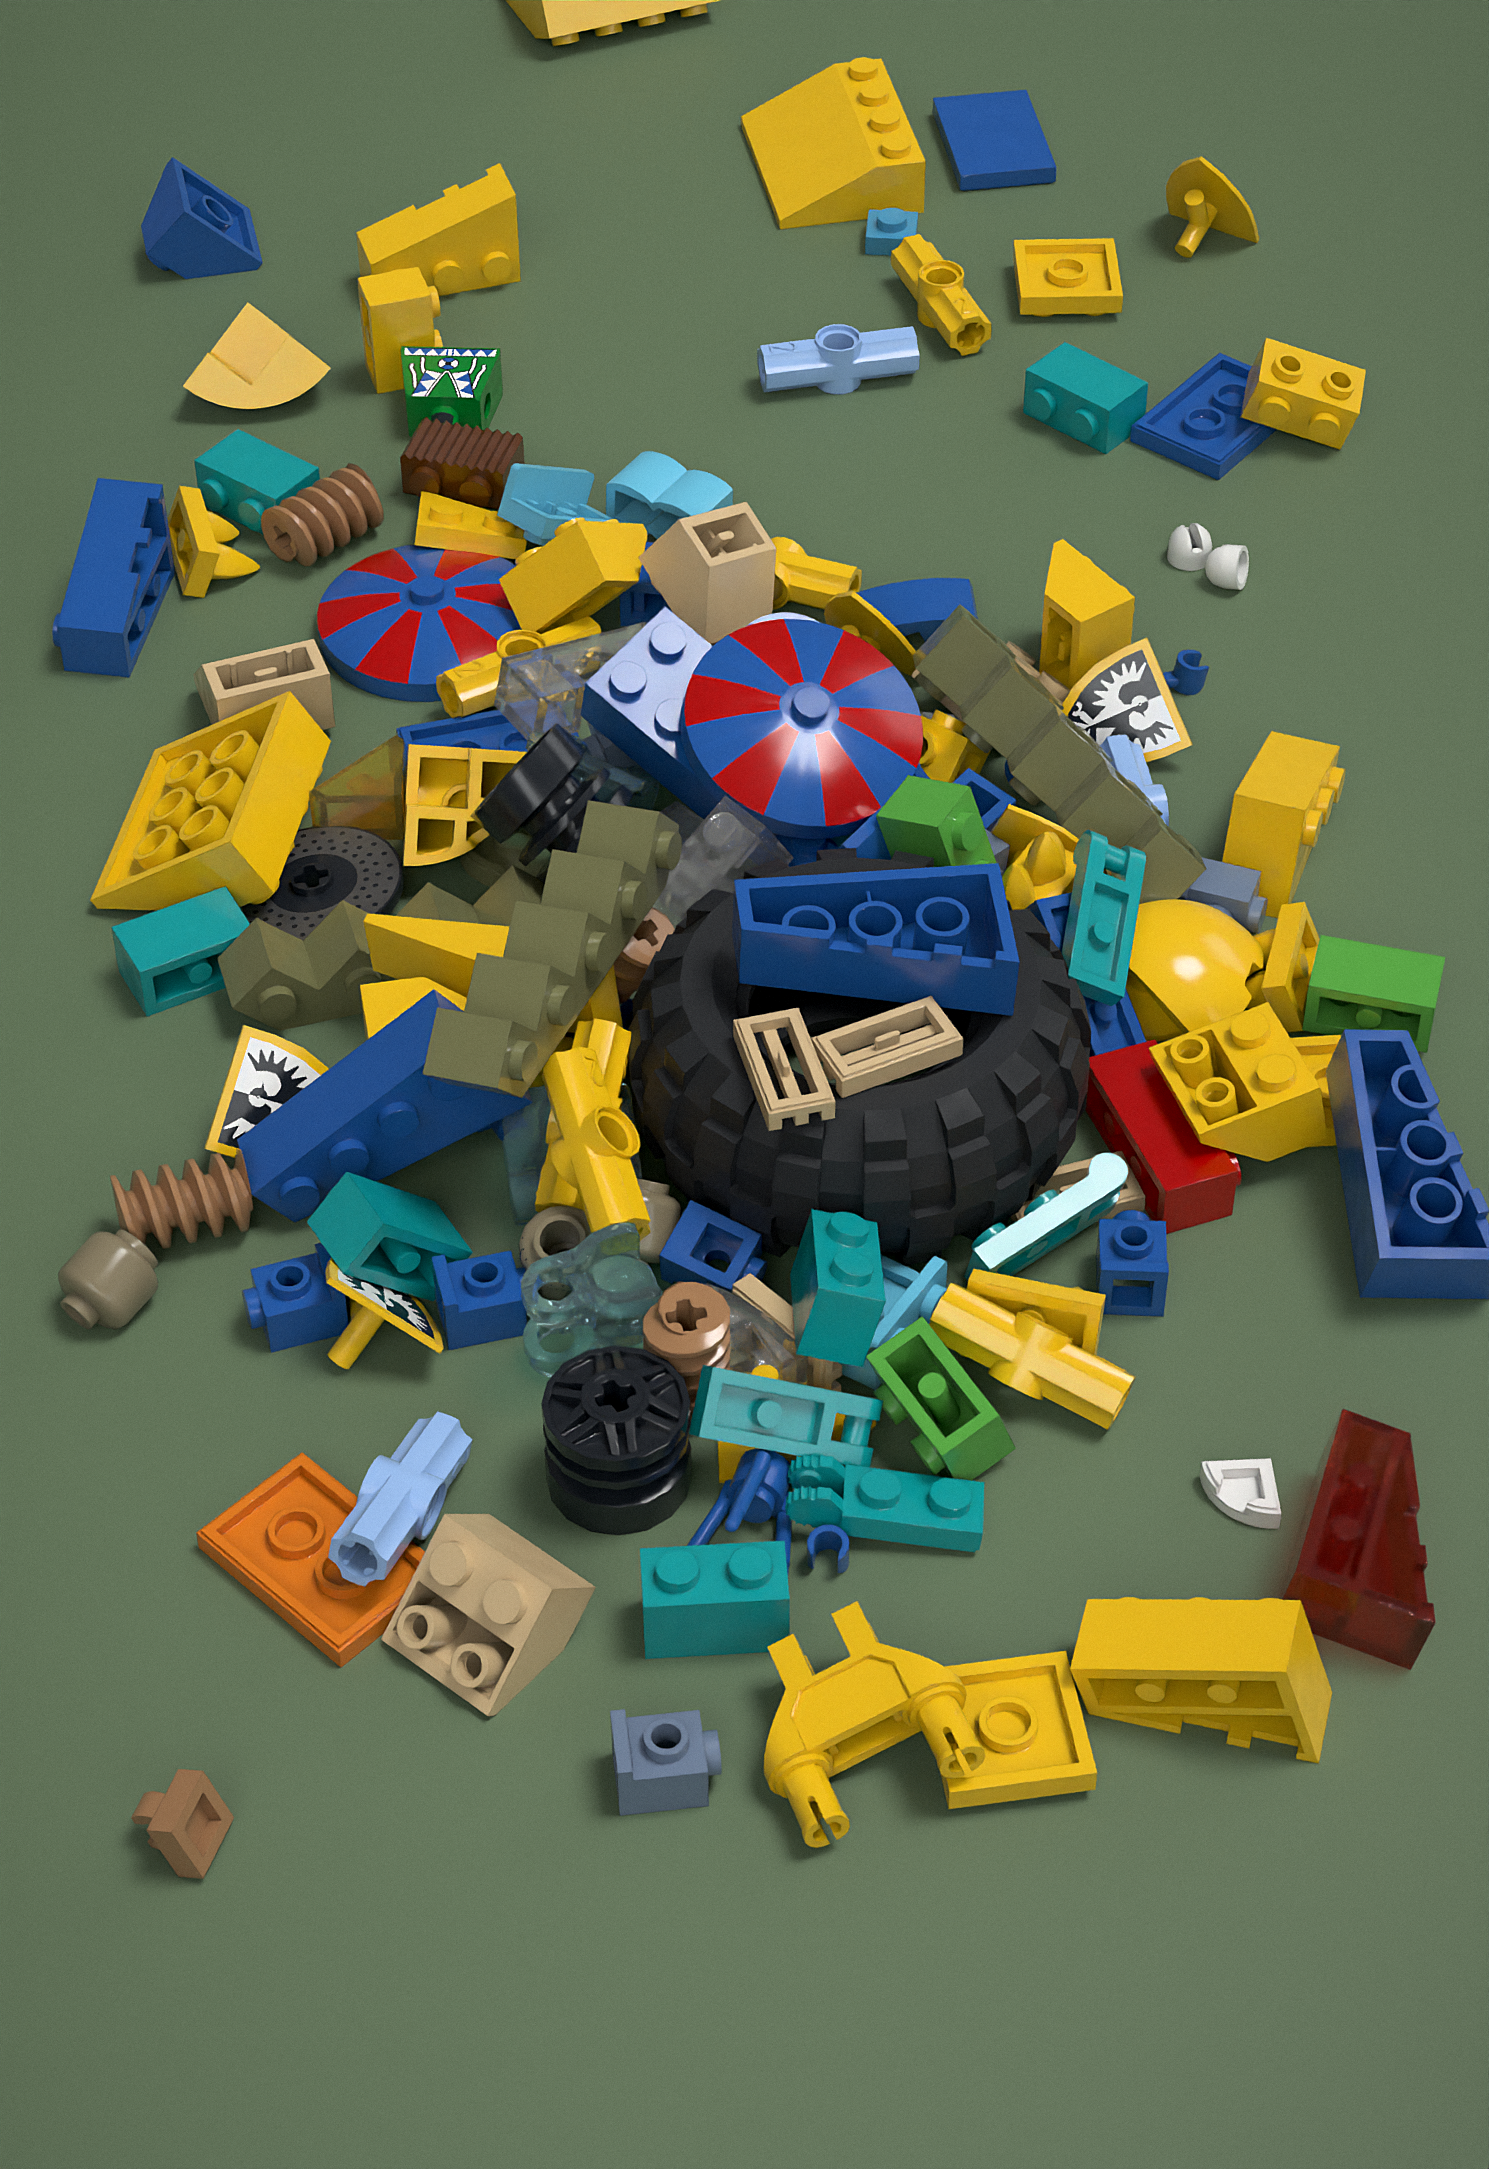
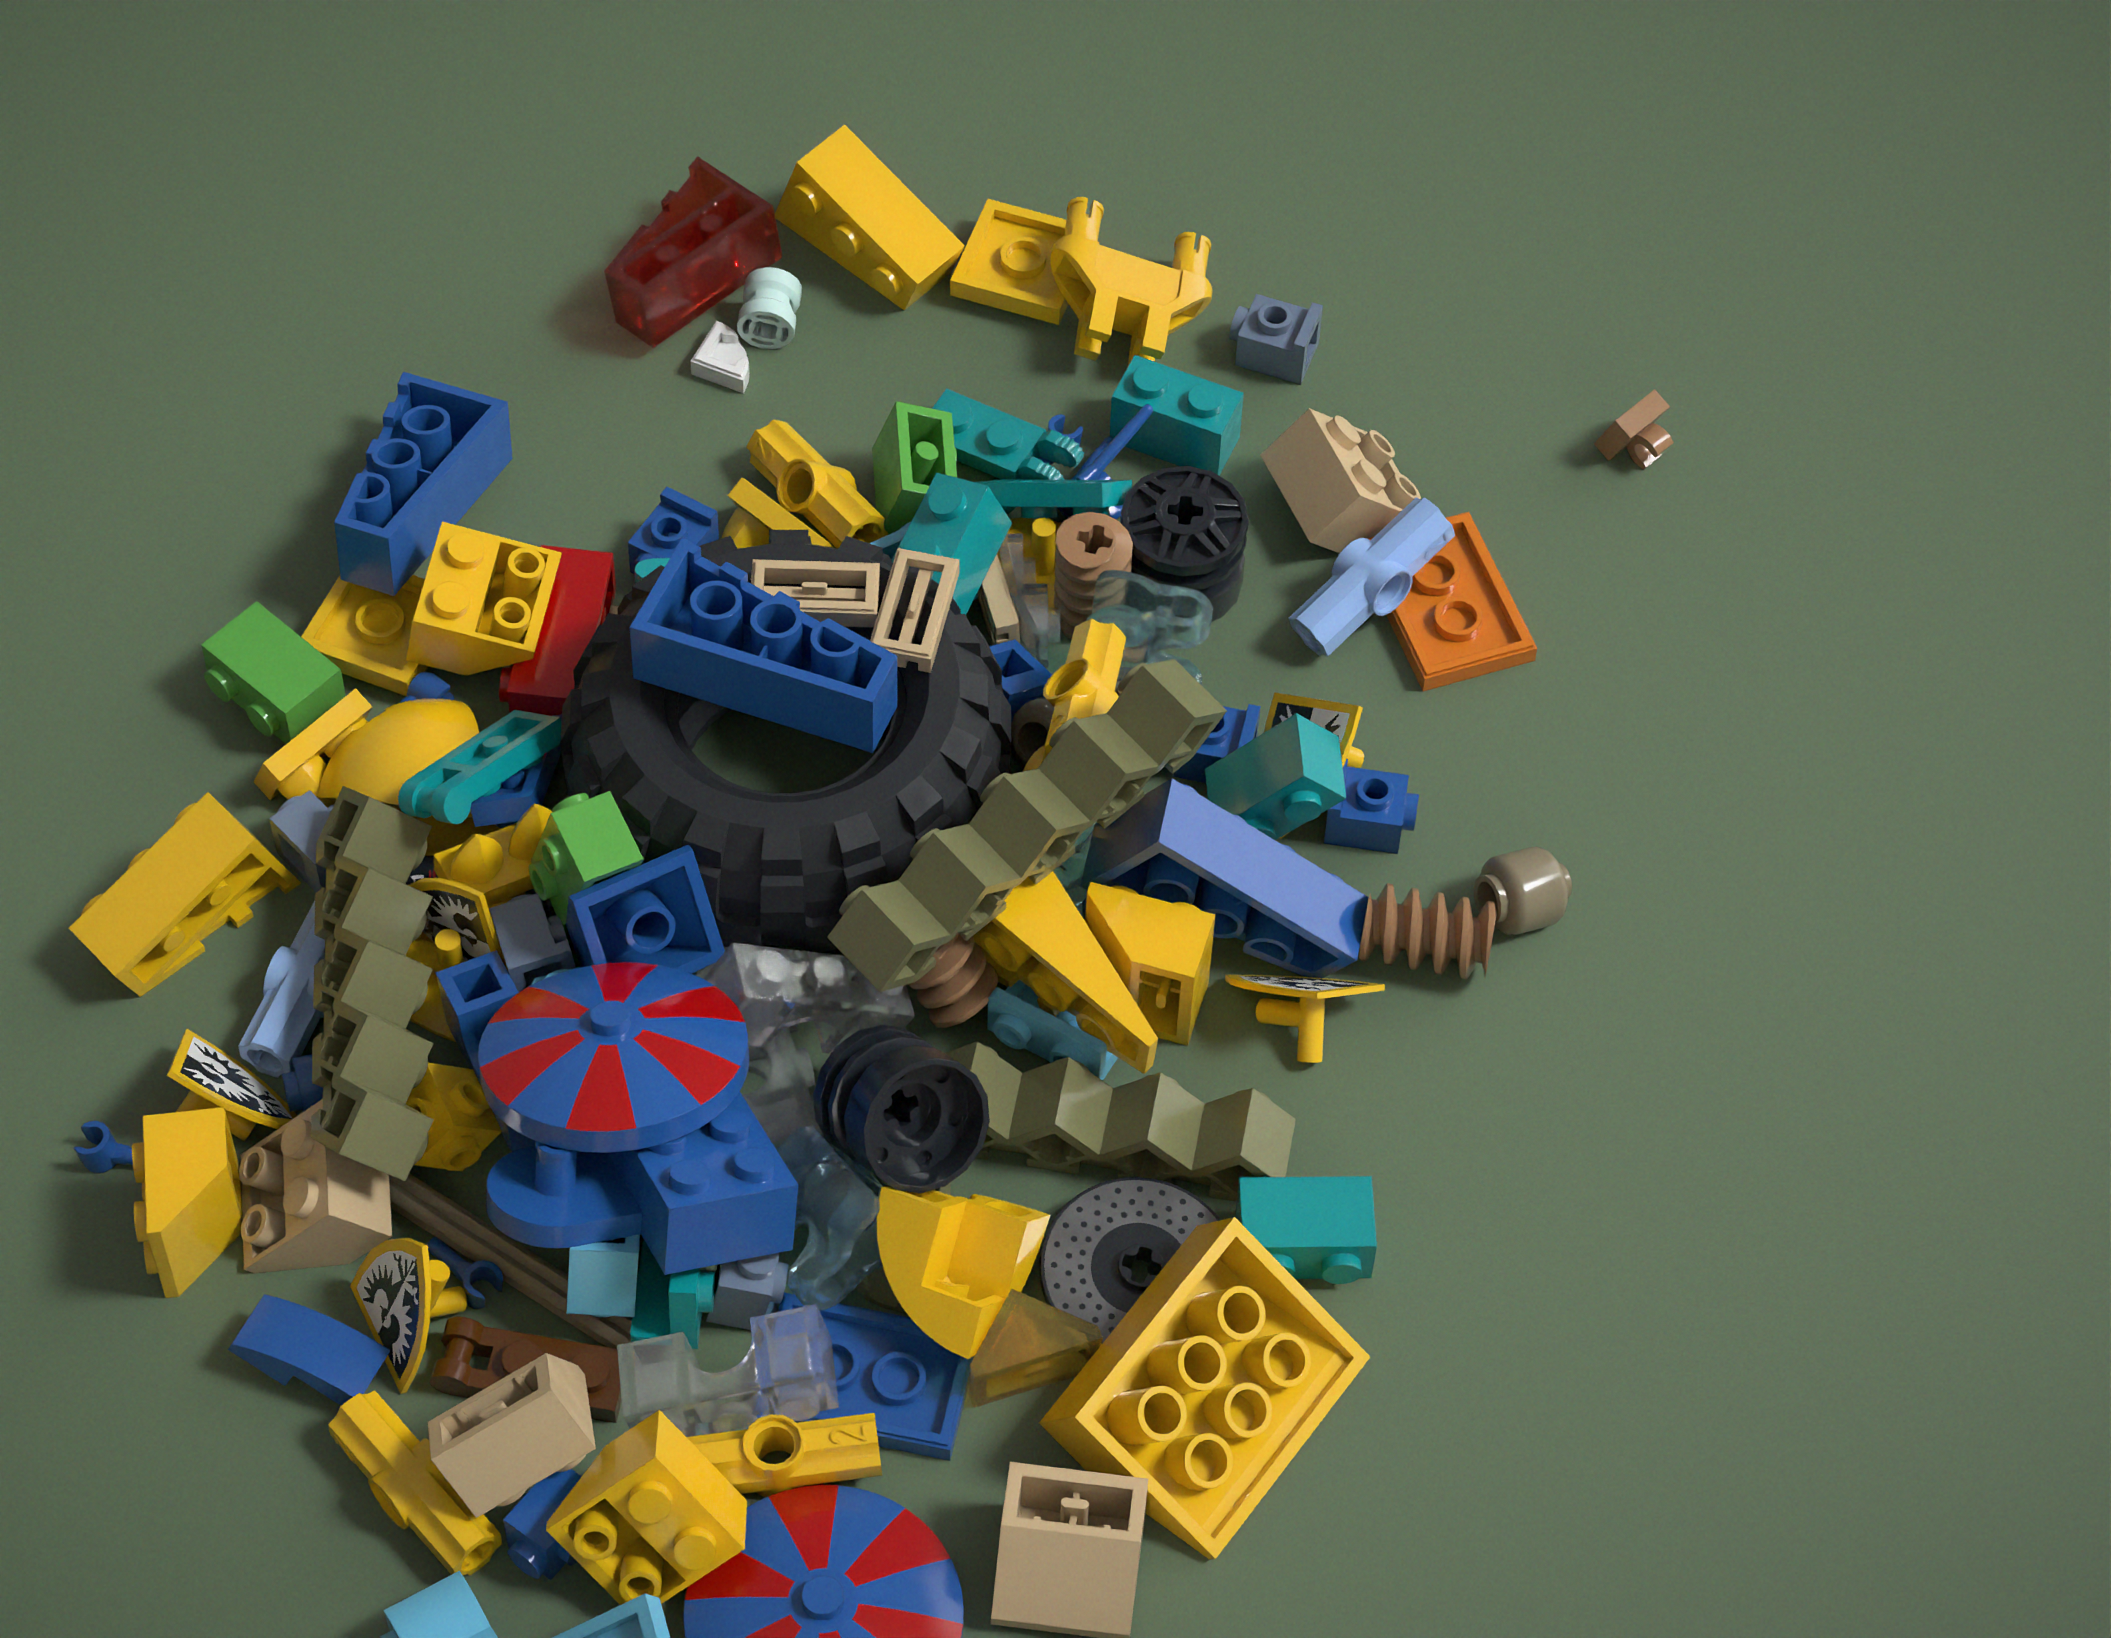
camera: 155 degrees left, 10 degrees up
(1237, 1546) = (769, 308): none -> light aqua wheel

